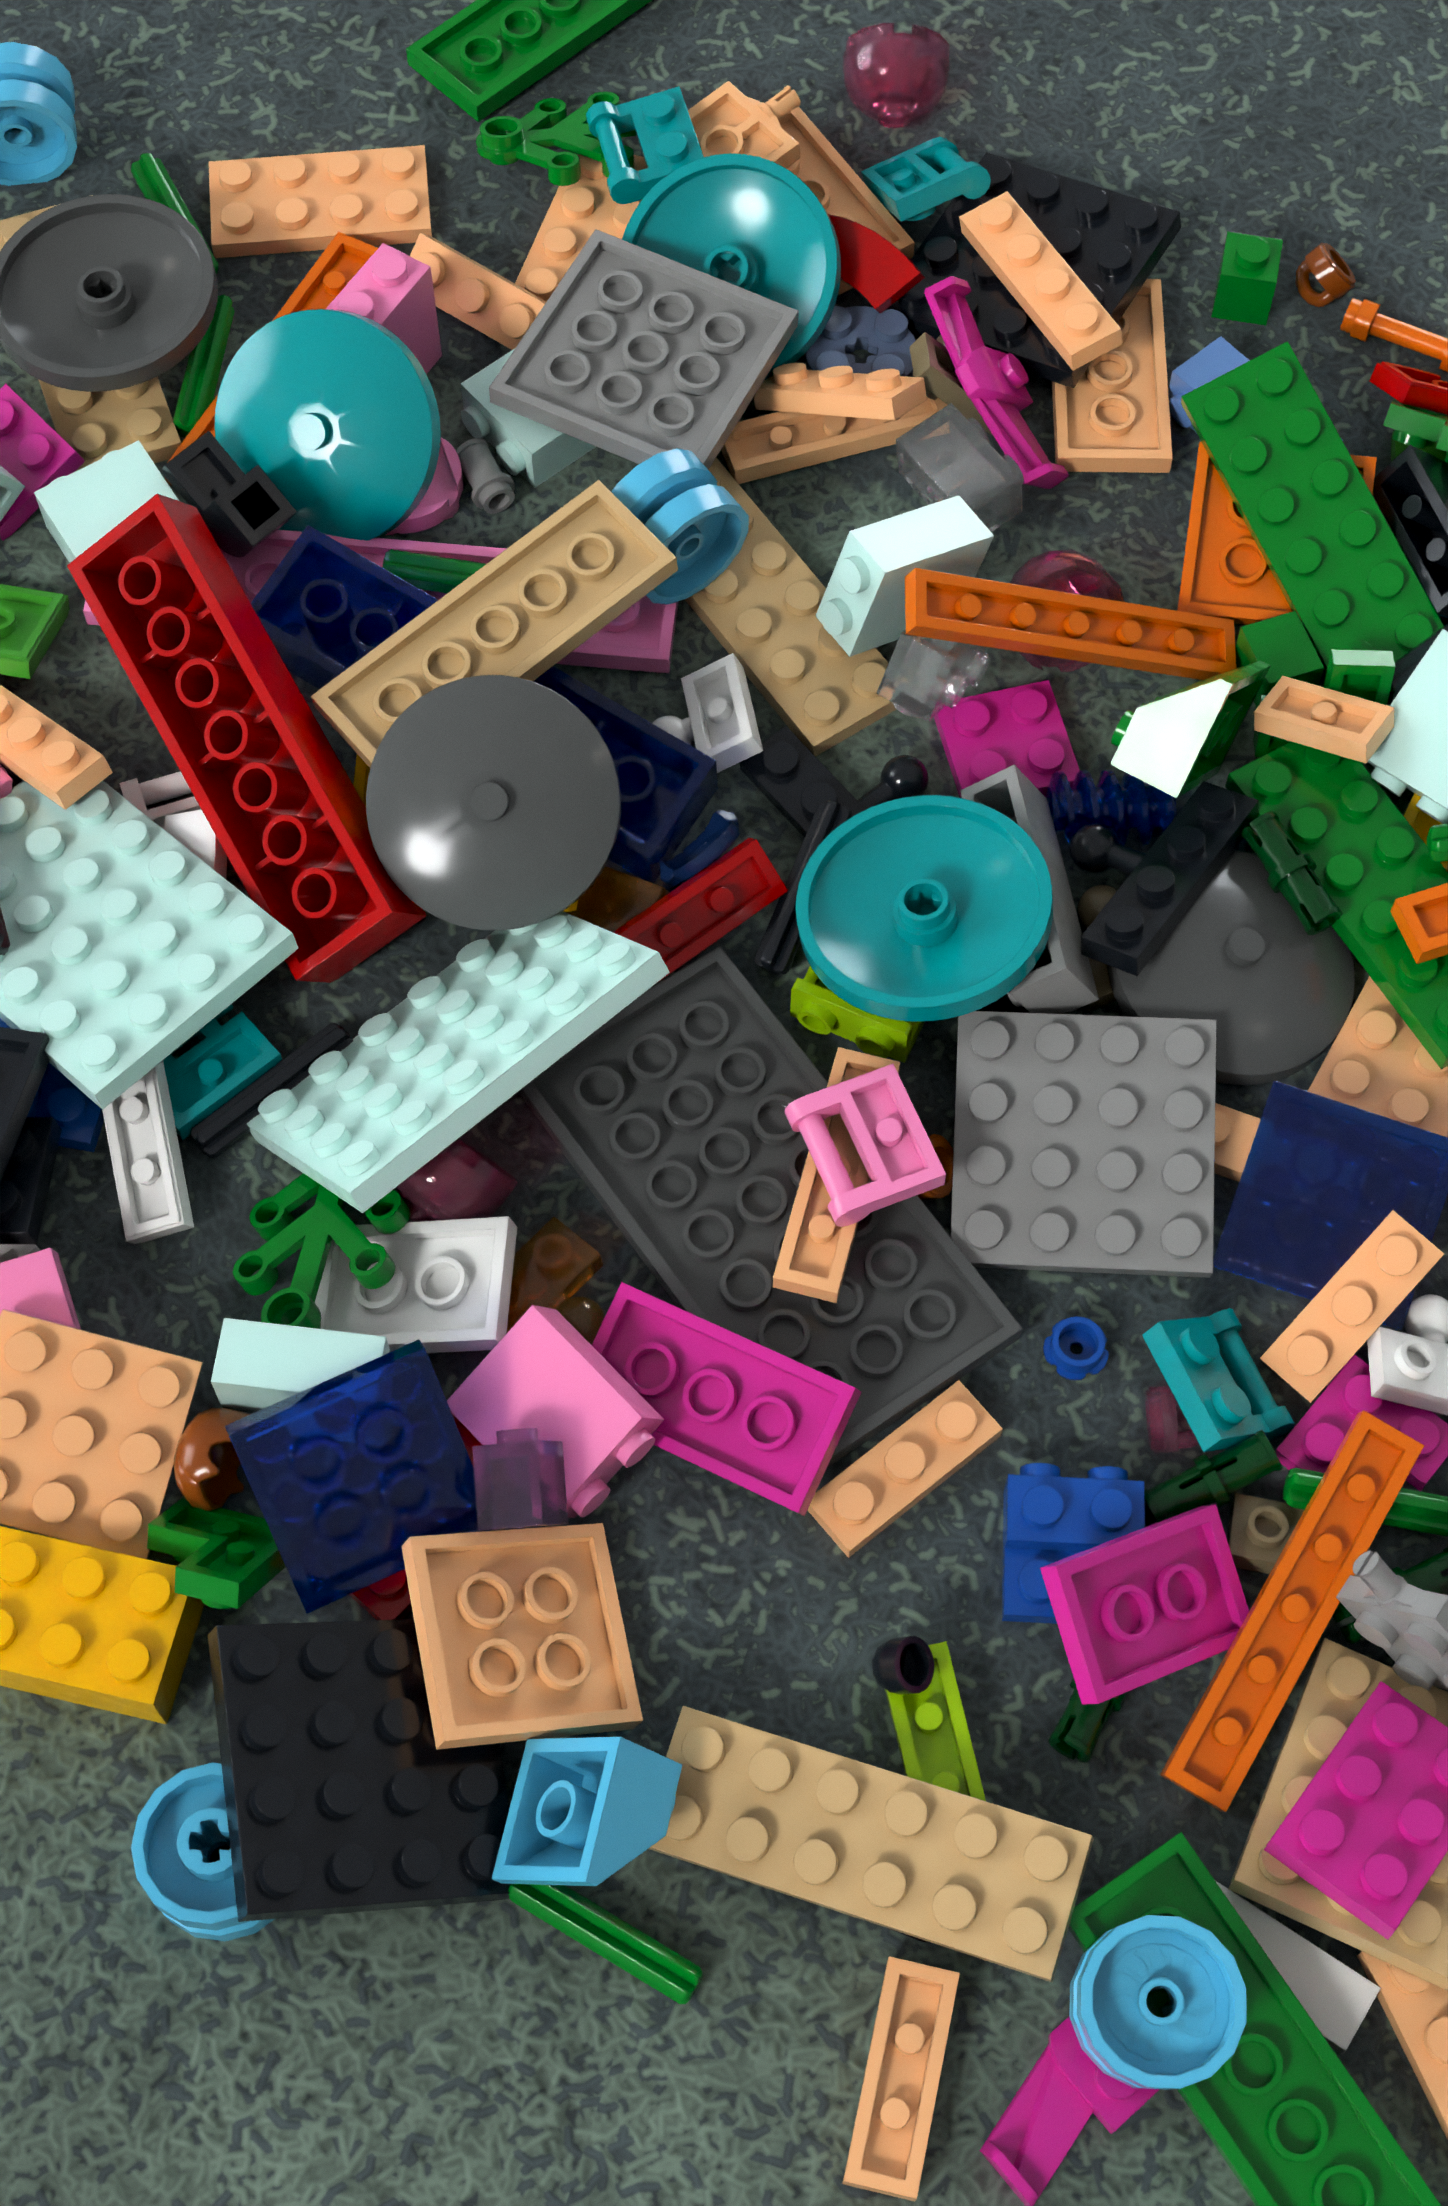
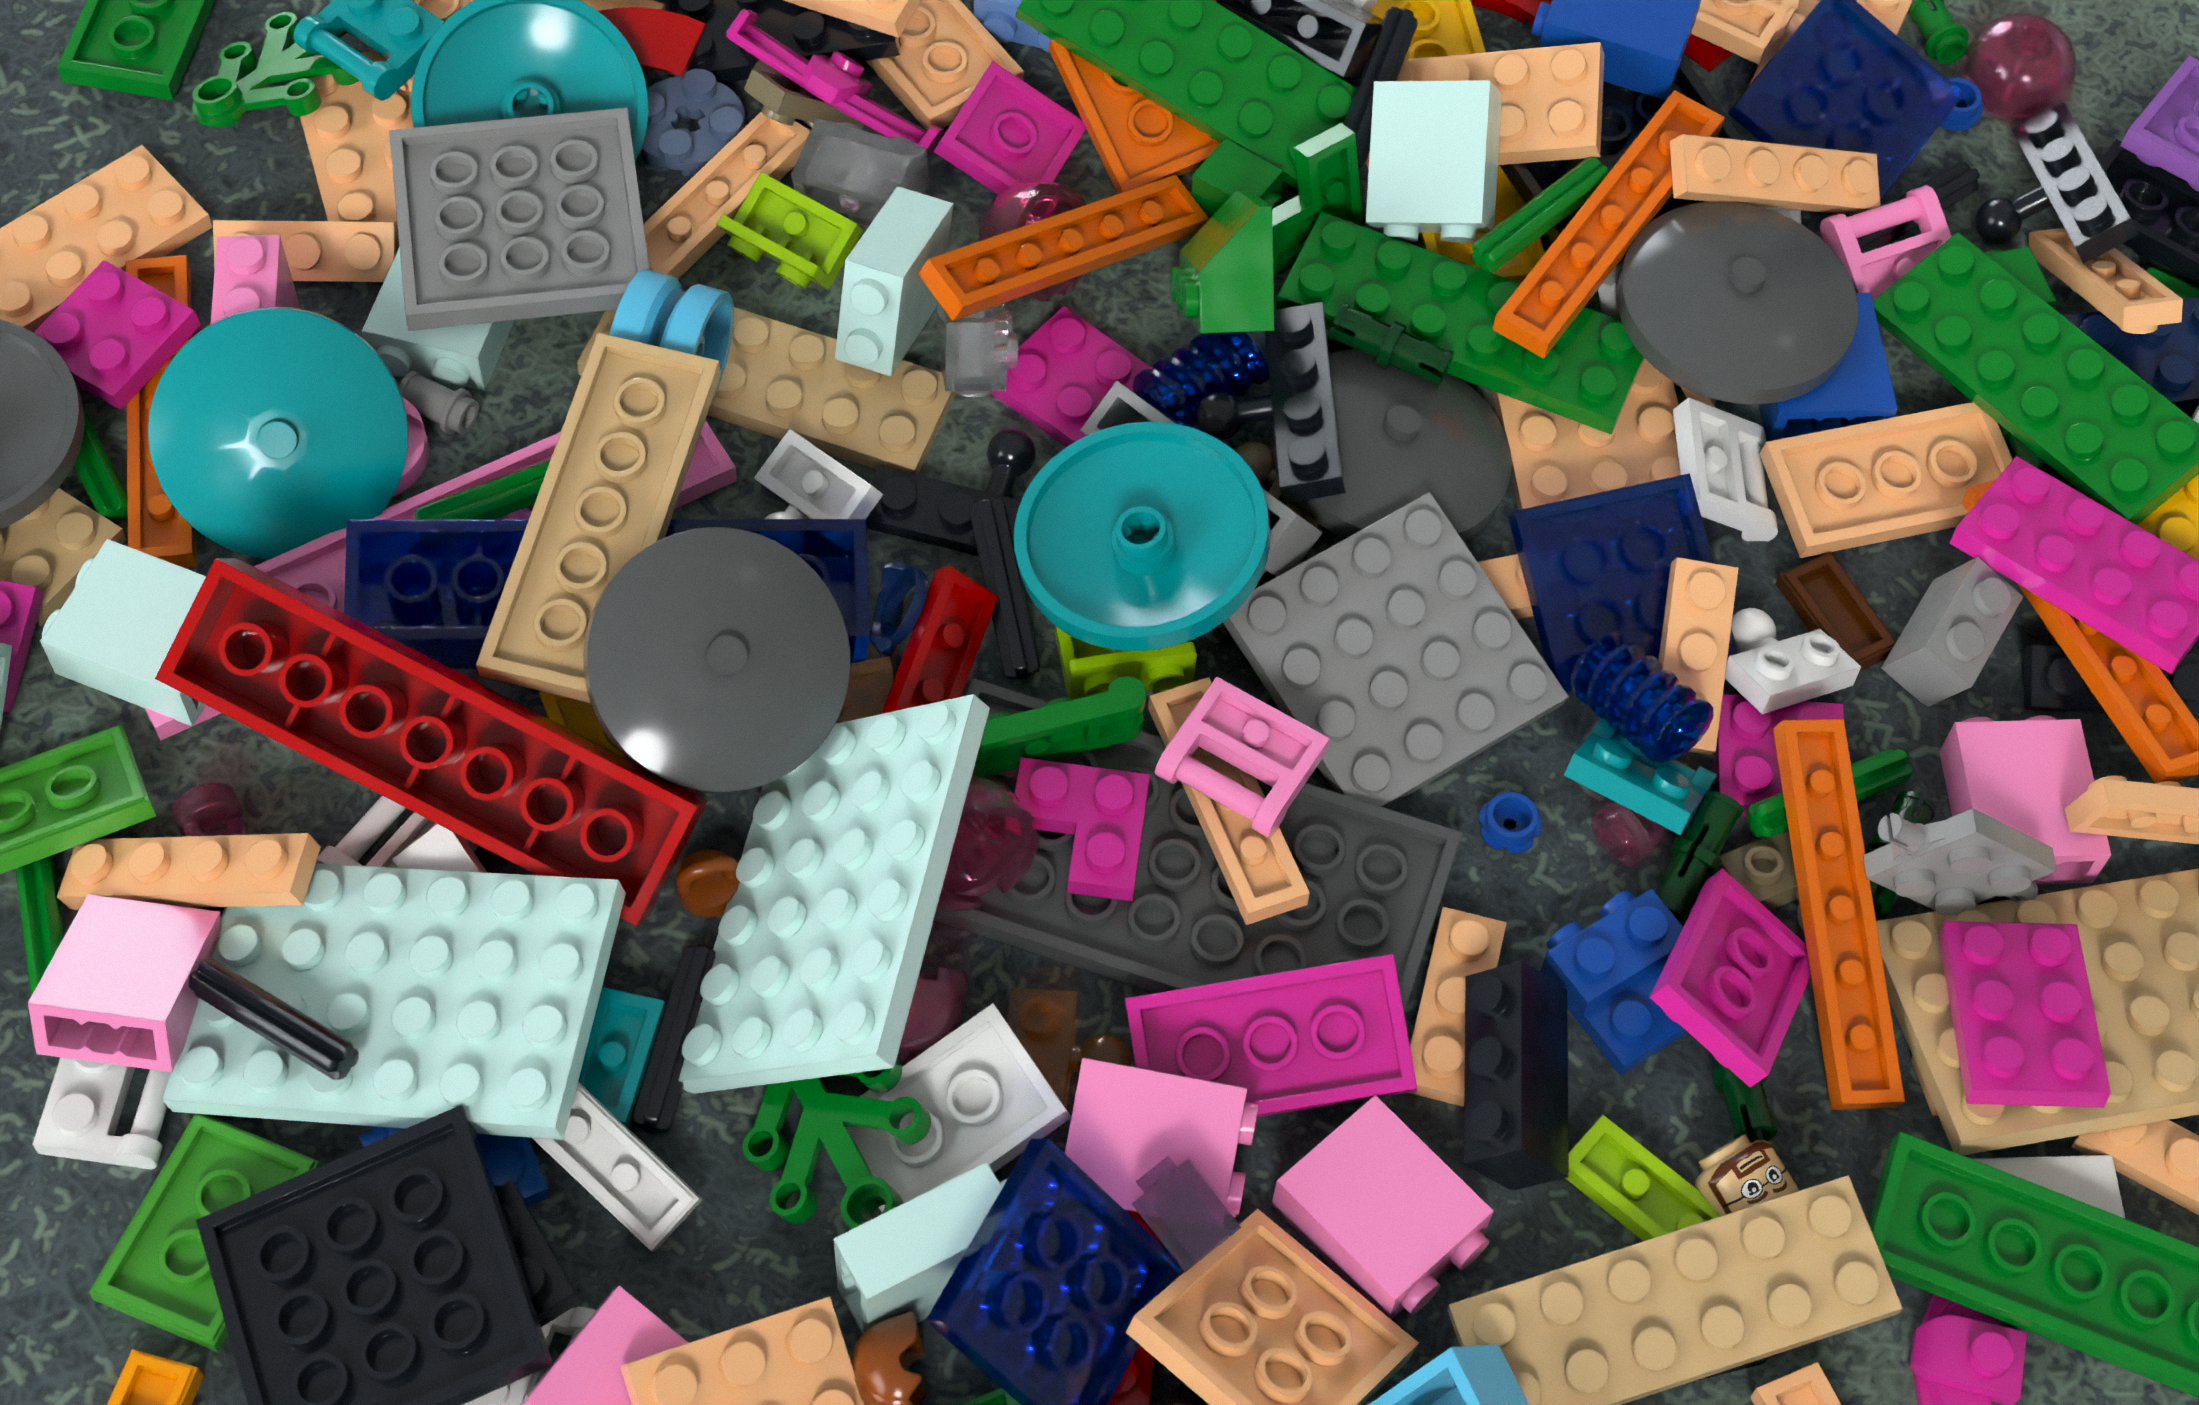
camera: 40 degrees left, 5 degrees down
(72, 698) = (208, 811): none -> clear pink tile
(234, 505) = (259, 535): black brick -> none
(277, 277) = (117, 333): none -> dark pink plate
(388, 980) = (706, 882): none -> dark orange tile
(597, 1083) = (990, 846): none -> clear pink cylinder
(701, 1594) = (1383, 1210): none -> bright pink brick
(729, 1118) = (1102, 812): none -> dark pink plate
(743, 1028) = (1062, 727): none -> green plate
(840, 392) = (714, 158): light nougat plate -> none
(862, 482) = (792, 231): none -> lime bracket
(896, 1557) = (1516, 1076): none -> black brick
(903, 1665) = (1592, 1152): black hinge -> none
(1024, 1777) = (1743, 1175): none -> tan head
(1115, 507) = (1009, 133): none -> dark pink plate
(1198, 2022) = (1997, 1265): medium azure wheel -> none
(1262, 1312) = (1640, 698): none -> clear blue piece
(1324, 719) = (1328, 207): light nougat plate -> none

